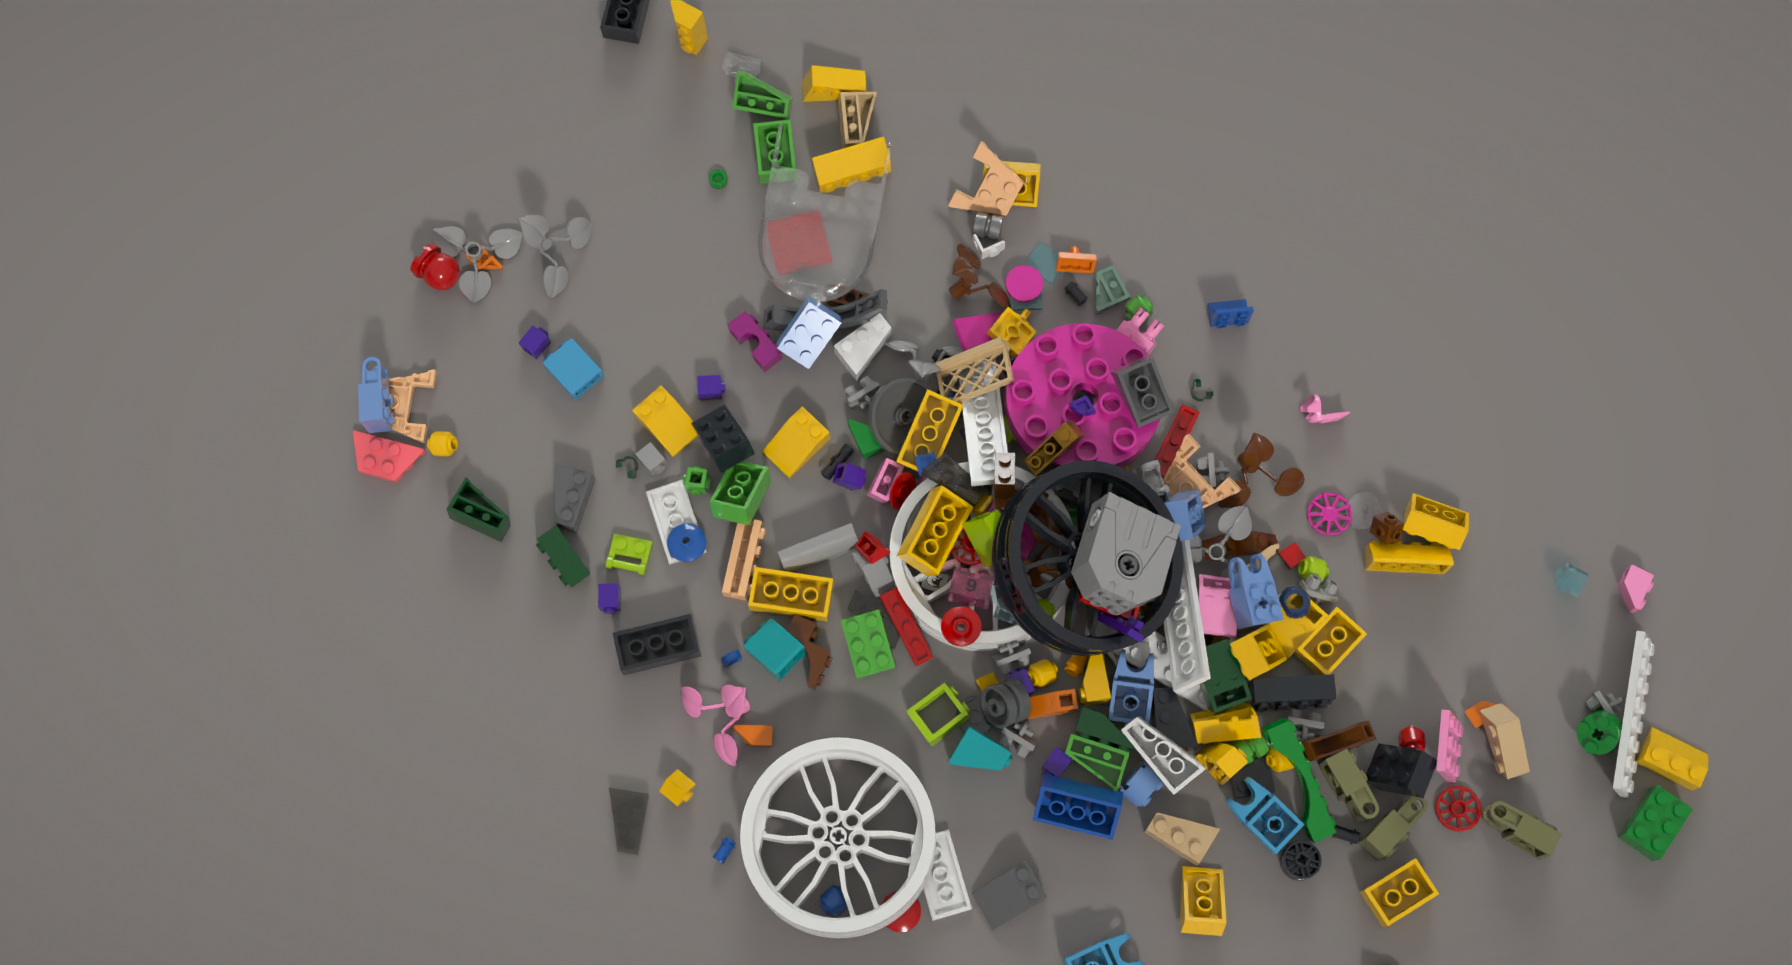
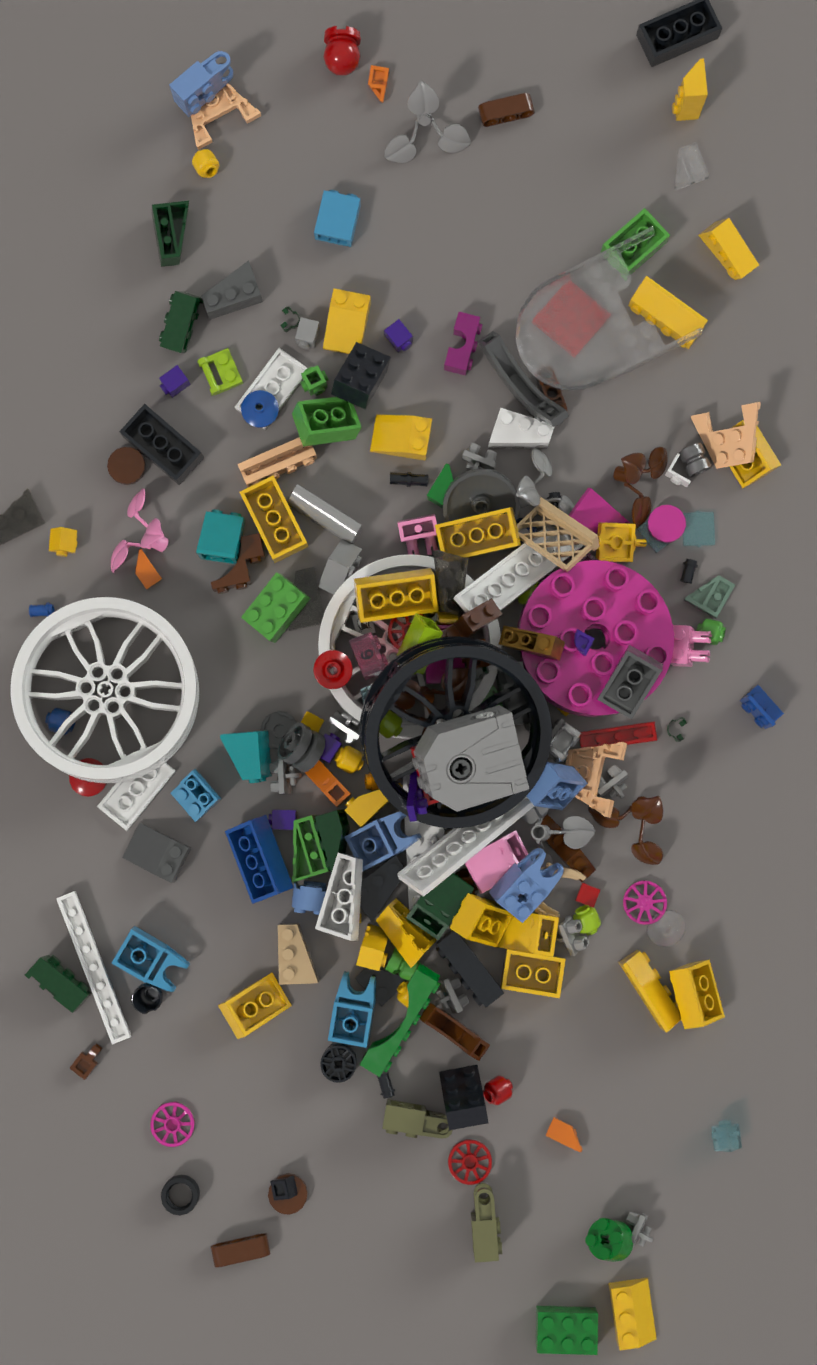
camera: 55 degrees right, 10 degrees up
(383, 456) = (165, 127): coral wing -> none
(477, 284) = (374, 46): light grey plant -> none
(535, 341) = (338, 172): dark purple brick -> none
(586, 175) = (506, 109): none -> reddish brown beam
(651, 689) = (126, 465): none -> reddish brown tile
(718, 179) = (580, 215): green tile -> none
(731, 658) = (192, 509): blue tile -> none
(759, 97) = (673, 197): bright green wedge -> none
(808, 332) = (496, 379): brick -> none
(849, 476) = (402, 497): dark purple brick -> none
(854, 116) = (712, 286): tan wedge -> none
(871, 548) = (352, 555): red slope -> none
(901, 489) = (417, 545): red dish -> none
(906, 626) = (310, 628): red tile -> none
(924, 460) = (450, 546): blue tile -> none
(949, 727) = (240, 696): lime window -> none
(983, 825) = (195, 795): none -> dark azure brick
(1075, 261) = (715, 552): orange tile -> none
(1295, 613) = (555, 923): dark blue piece -> none
(1313, 407) = (720, 836): bright pink hair -> none
(1350, 784) = (426, 1062): olive brick -> none
(1386, 527) = (662, 957): reddish brown brick -> none
(1399, 893) = (365, 1158): yellow brick -> none
(1449, 746) = (510, 1124): bright pink plate -> none
(1505, 740) = (549, 1166): tan wedge -> none
(1634, 586) = (757, 1192): bright pink slope -> none
(1634, 708) = (646, 1256): white plate -> none

